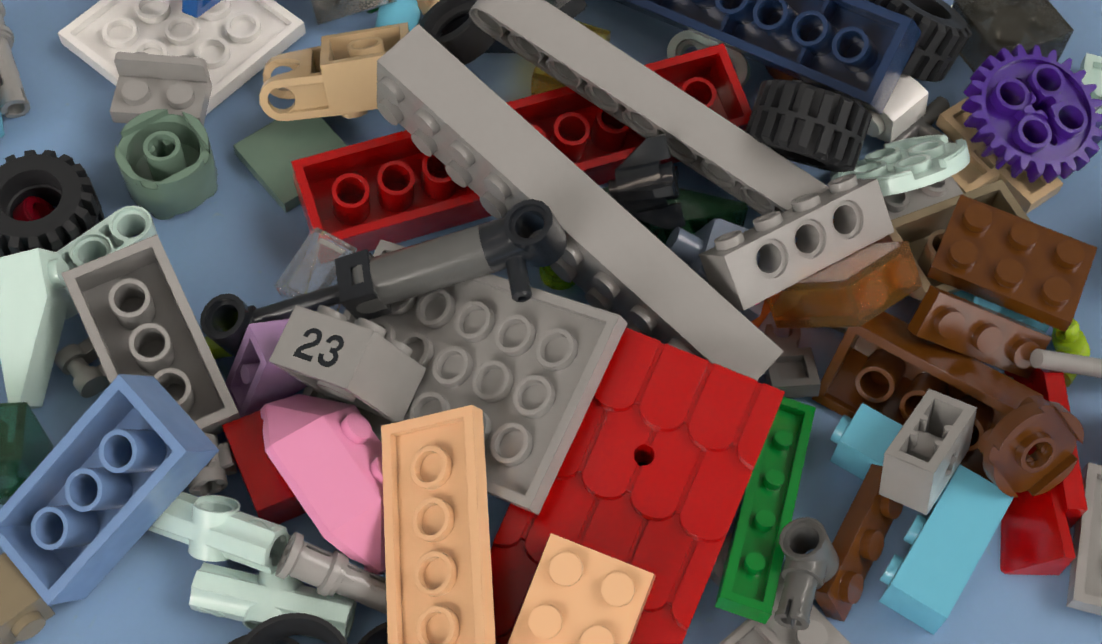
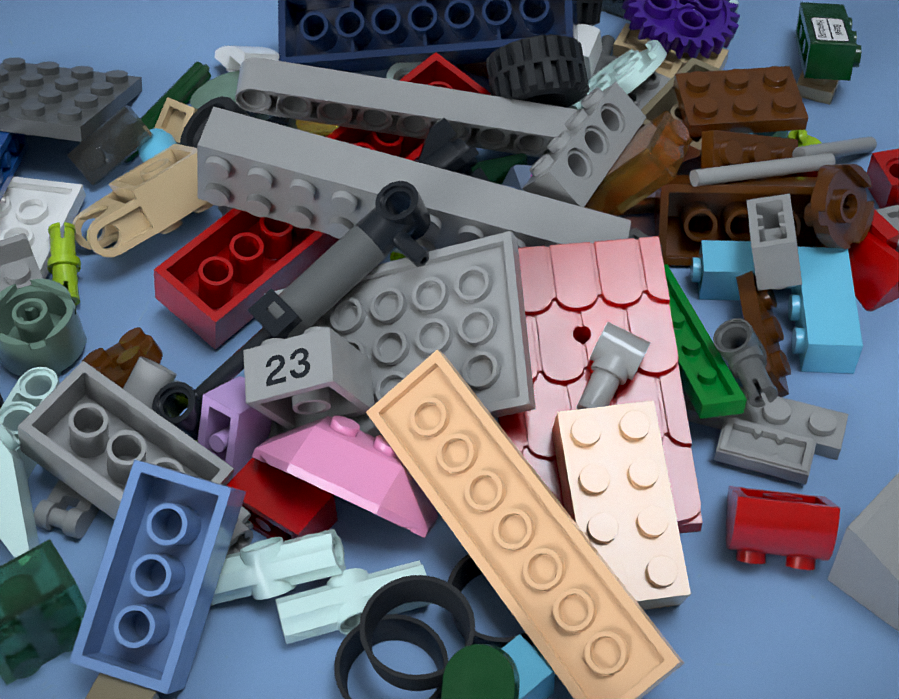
camera: 25 degrees left, 10 degrees down
(214, 240) = (120, 359): none -> reddish brown plate
(222, 276) = (147, 380): none -> light grey pin
(235, 103) = (63, 260): none -> lime pin
(274, 146) = (127, 286): sand green tile -> none
(313, 265) = (224, 333): clear slope -> none
(331, 573) = (395, 546): light grey pin -> none
(655, 503) = (615, 360): none -> light grey pin
(977, 358) = (760, 169): none -> light grey bar

